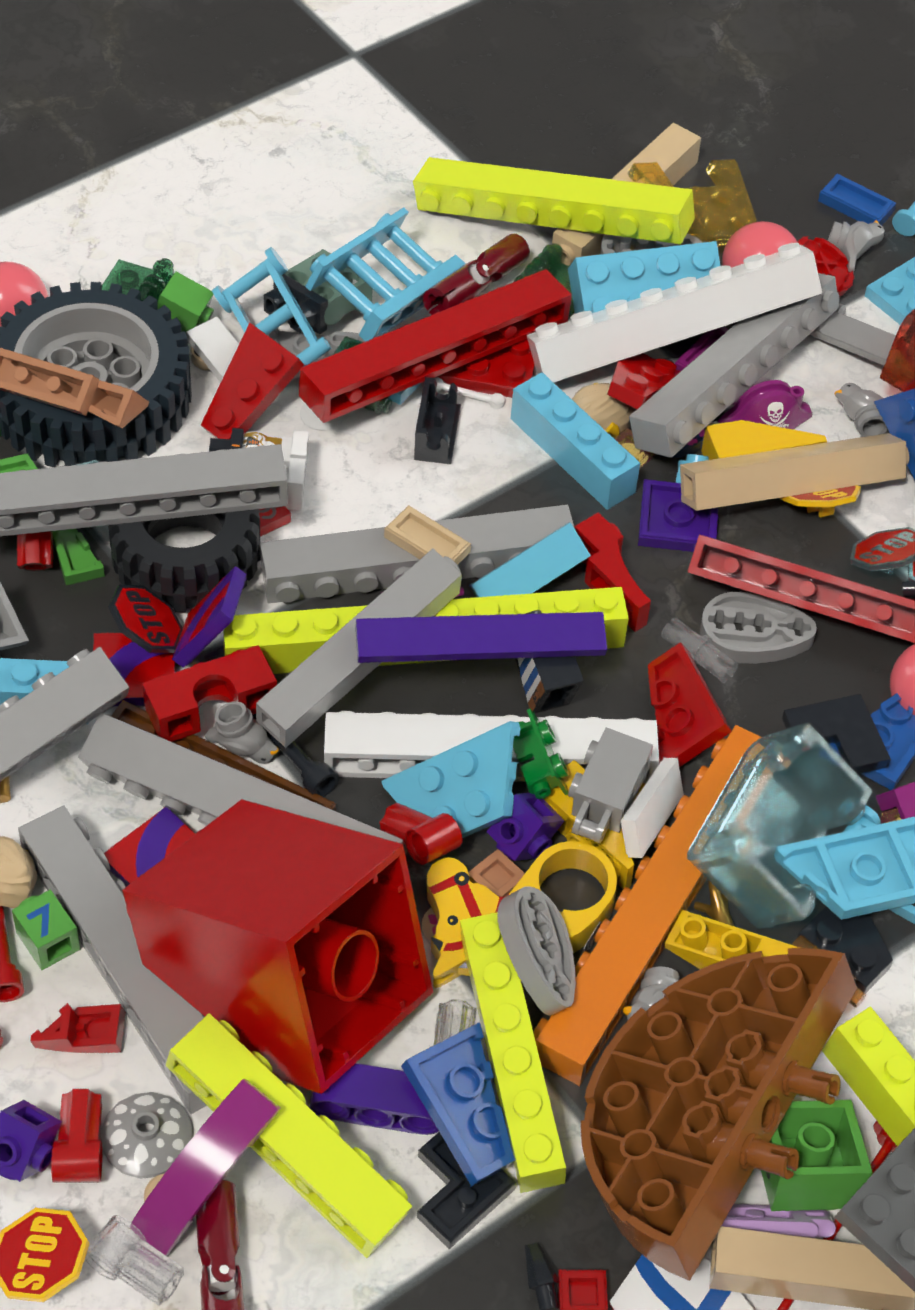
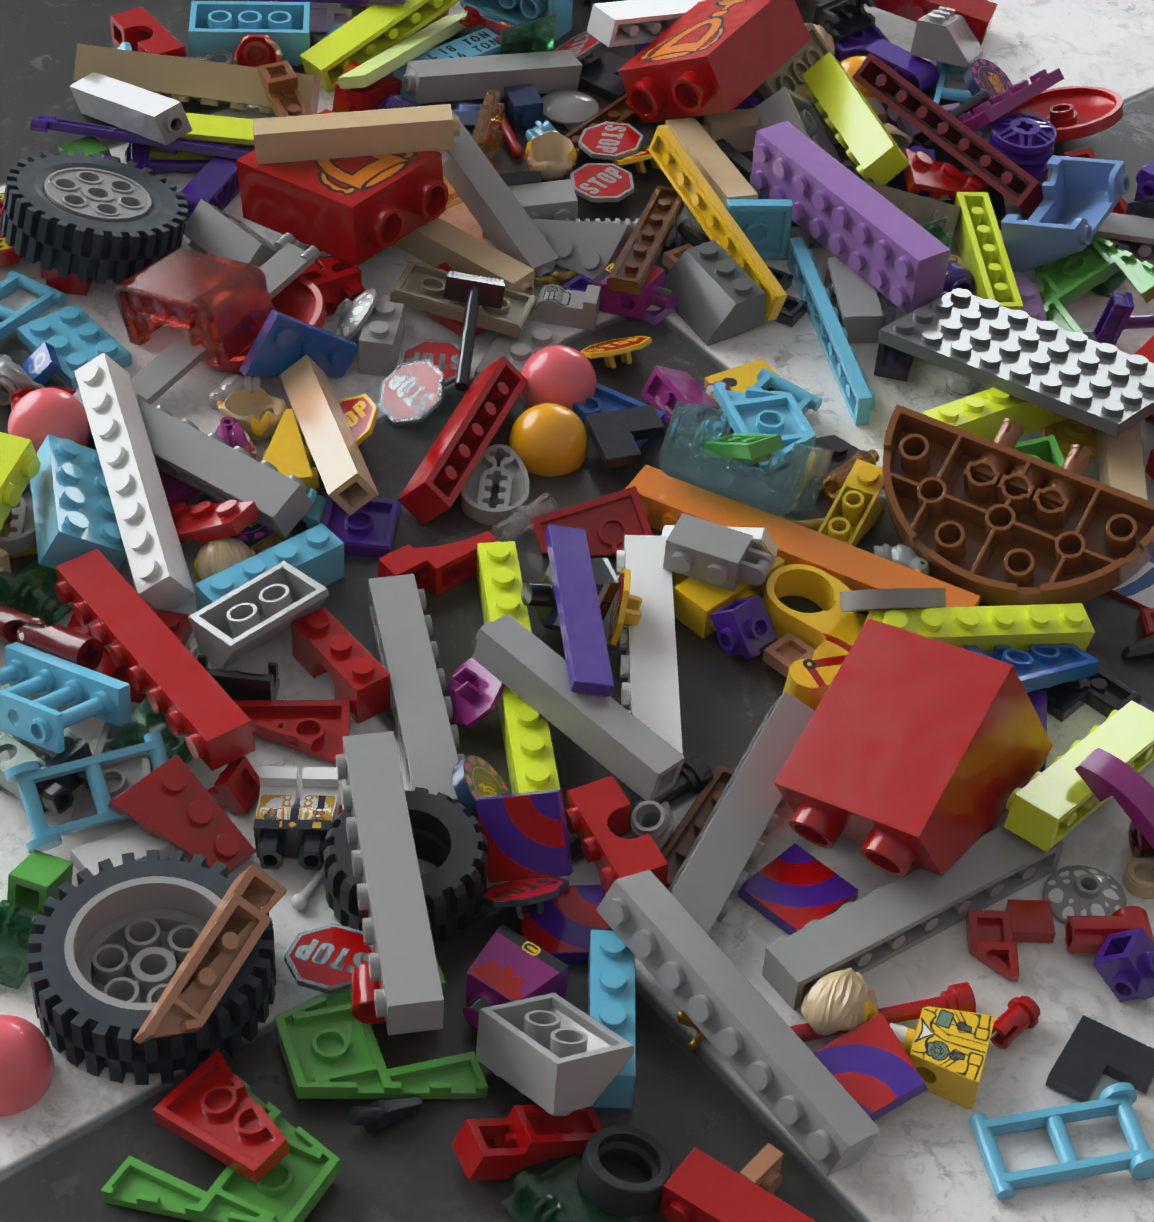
camera: 90 degrees left, 10 degrees down
(45, 929) = (898, 969): bright green brick -> none
(60, 618) = (511, 971): none -> magenta torso
(111, 1069) = (1031, 920): none -> red tile
(276, 586) = (476, 779): none -> tile
(302, 419) = (237, 787): none -> red tile
(384, 475) = (302, 725): none -> red wing
(420, 534) = (420, 673): tan tile -> none
(423, 835) = (766, 683): red piece -> none
(465, 781) = (715, 657): medium azure wing -> none
(483, 477) = (326, 646): none -> red arch
(508, 419) = (255, 613): none -> light grey slope
(518, 695) = (623, 609): none -> yellow piece
(534, 565) = (443, 609): medium azure tile -> none
(547, 768) = (665, 600): green hinge -> none
(781, 813) = (746, 446): none -> bright green plate
(826, 413) = (255, 412): none -> tan hair
(832, 668) = (549, 440): none -> light orange piece
(881, 262) = (42, 364): none -> blue tile

